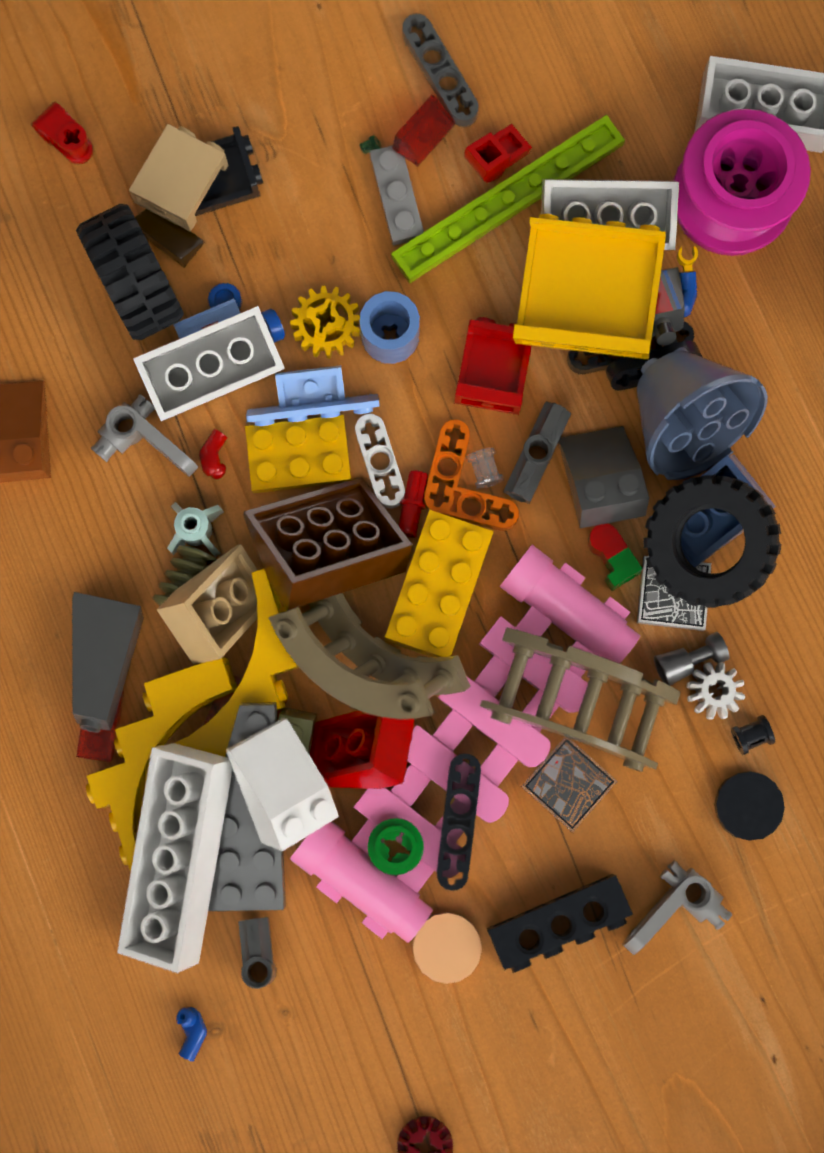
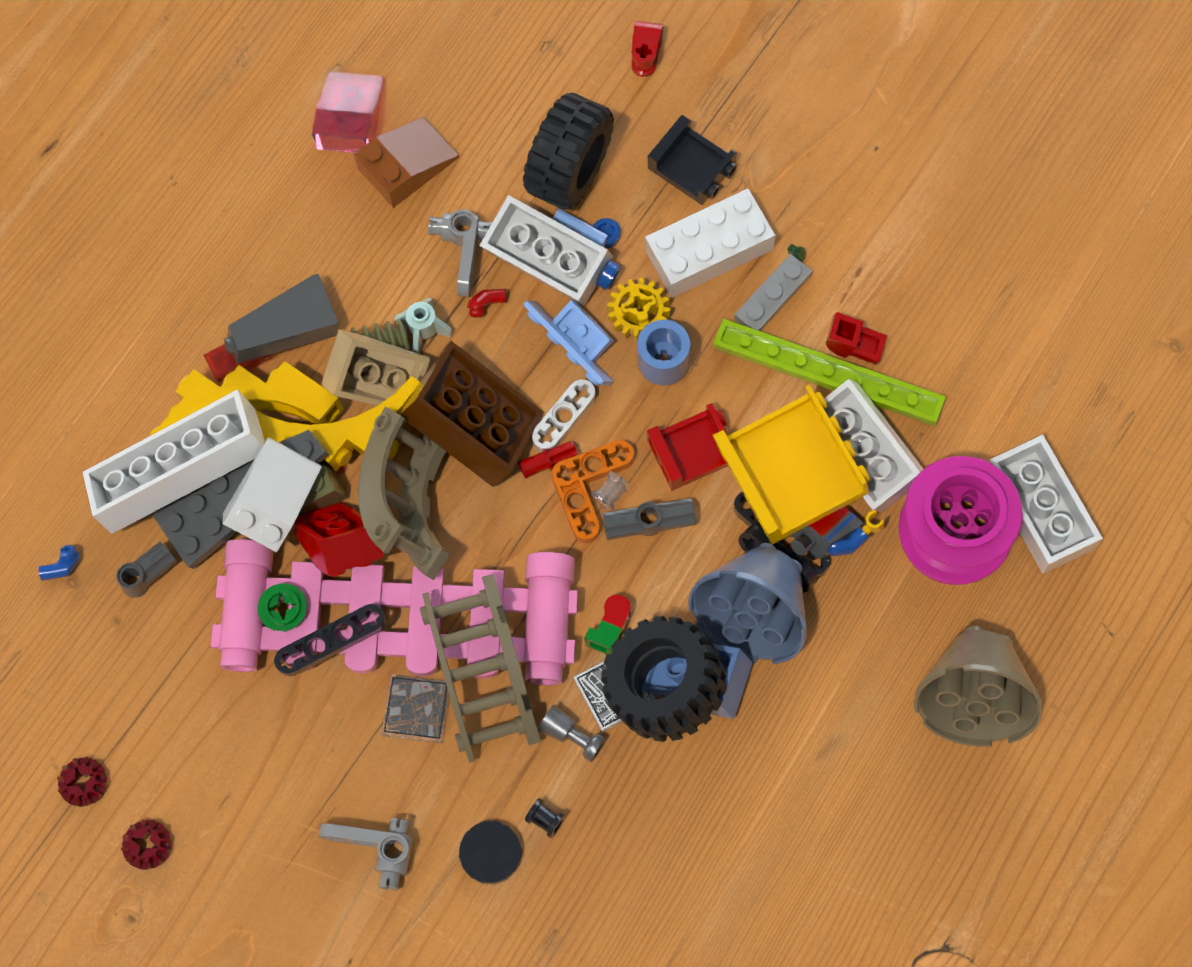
camera: 60 degrees right, 10 degrees down
(169, 237) = (625, 162): dark brown slope -> none
(178, 176) = (669, 137): tan panel -> none
(298, 454) = (528, 357): yellow plate -> none
(308, 213) = (709, 243): none -> white brick
(423, 131) = (833, 279): clear red slope -> none
(437, 71) = (892, 261): dark grey beam -> none
(438, 585) = (497, 516): yellow brick -> none
(447, 948) = (236, 701): light nougat tile -> none
(532, 1105) = (151, 857): none -> dark red gear
(604, 477) = (661, 575): dark grey slope -> none
(613, 914) = (271, 735): black brick -> none
(722, 702) = (553, 776): white gear -> none

